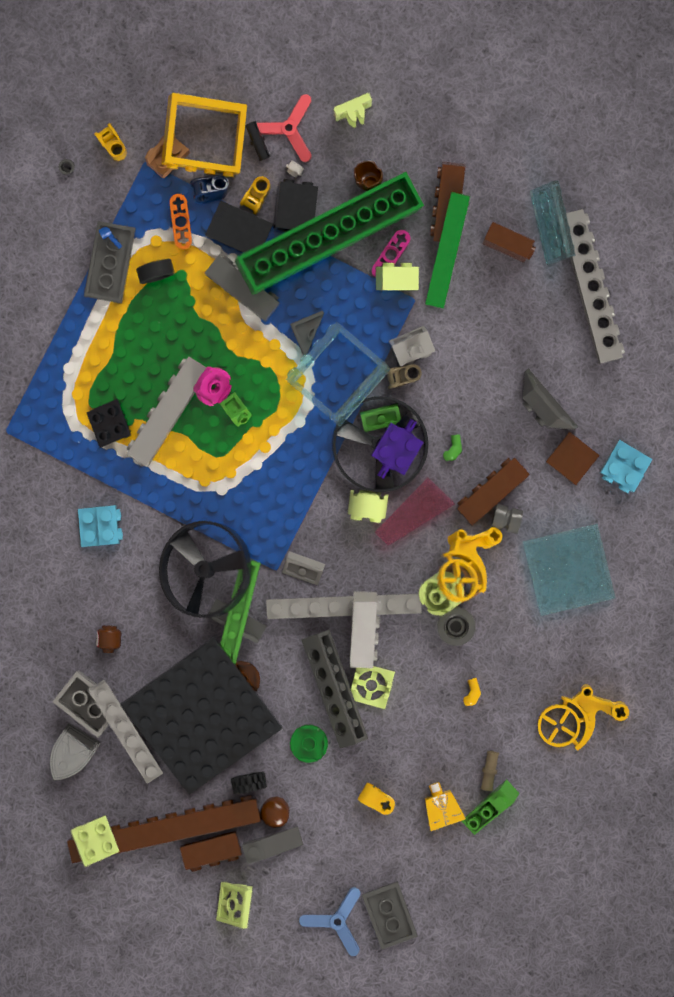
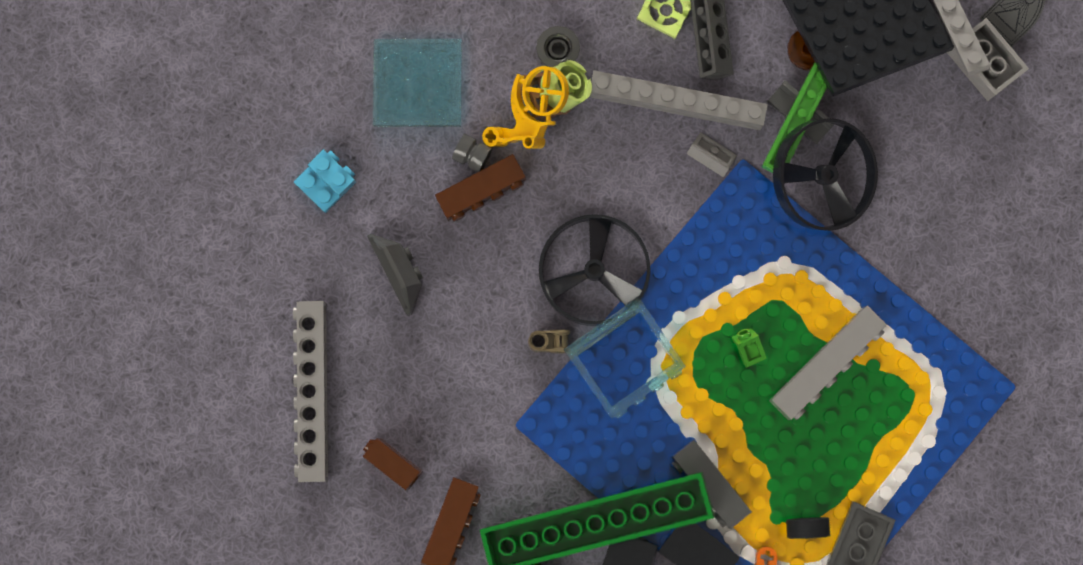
camera: 170 degrees left, 5 degrees down
(100, 526) = (931, 254): medium azure plate -> none
(108, 638) = (947, 127): reddish brown head -> none
(109, 423) = (897, 366): black hinge -> none
(205, 382) = (777, 386): dark pink plate -> none
(306, 329) = (648, 419): dark grey tile -> none
(363, 629) = (662, 66): light grey brick -> none
(367, 505) = (625, 203): yellowish green brick -> none
(380, 417) = (586, 300): bright green plate -> none
(394, 239) = (514, 491): dark pink beam -> none
(397, 278) = (530, 453): yellowish green brick -> none
(397, 448) = (577, 258): dark purple plate -> none
(412, 346) = (531, 371): light grey brick -> none
(416, 510) = (565, 190): clear pink wing -> none
(447, 249) = (464, 472): green tile -> none
(455, 450) = (511, 244): bright green arm -> none
(552, 222) = (336, 474): clear light blue plate -> none
(572, 458) = (382, 204): reddish brown tile -> none

